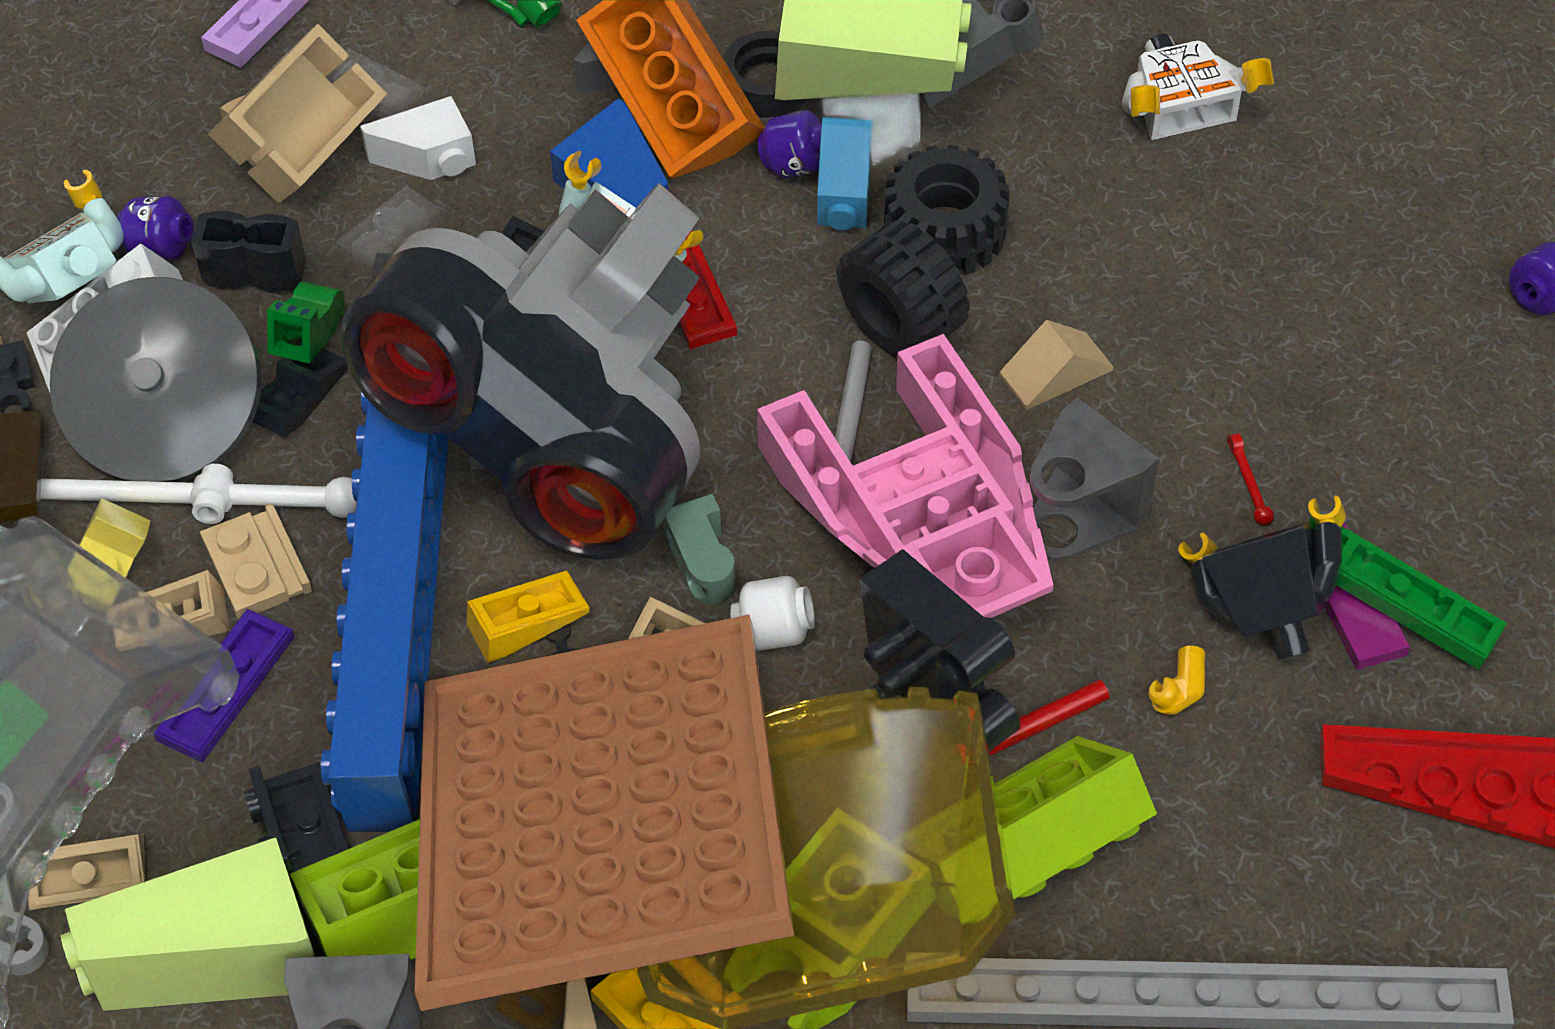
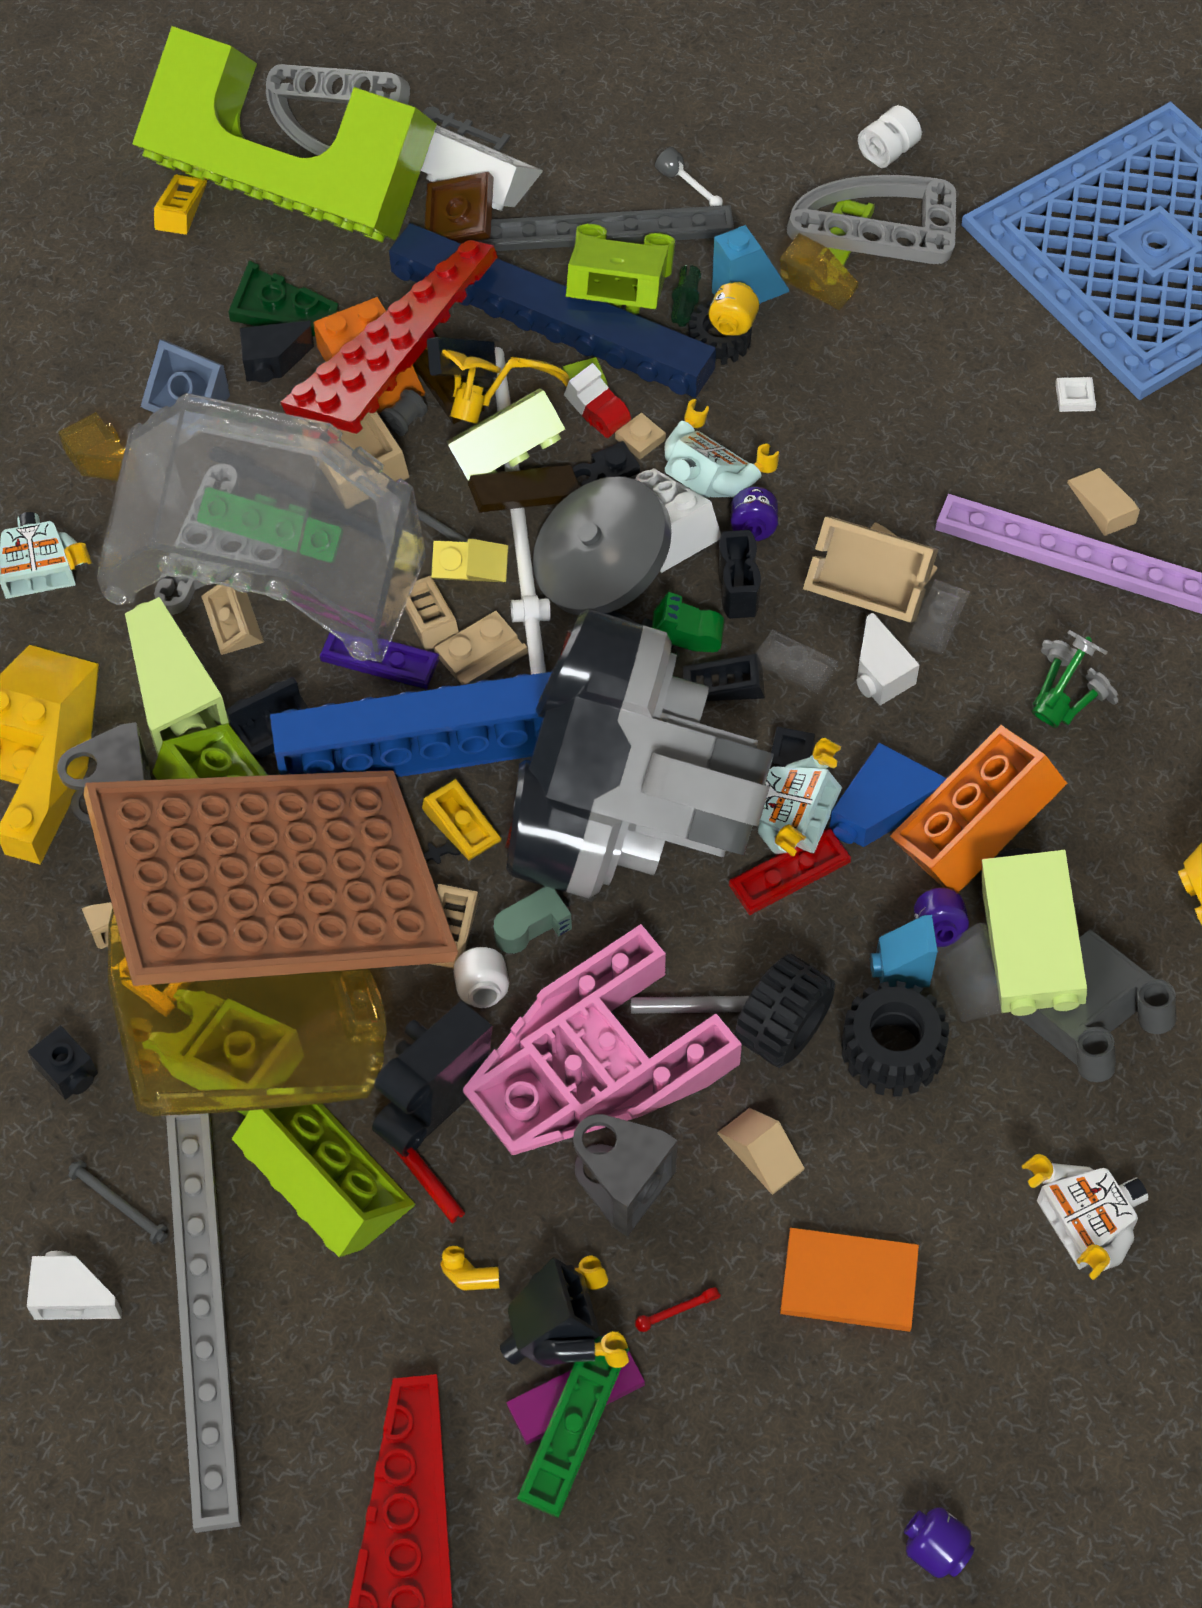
camera: 80 degrees right, 5 degrees up
(1229, 313) = (850, 1279): none -> orange tile

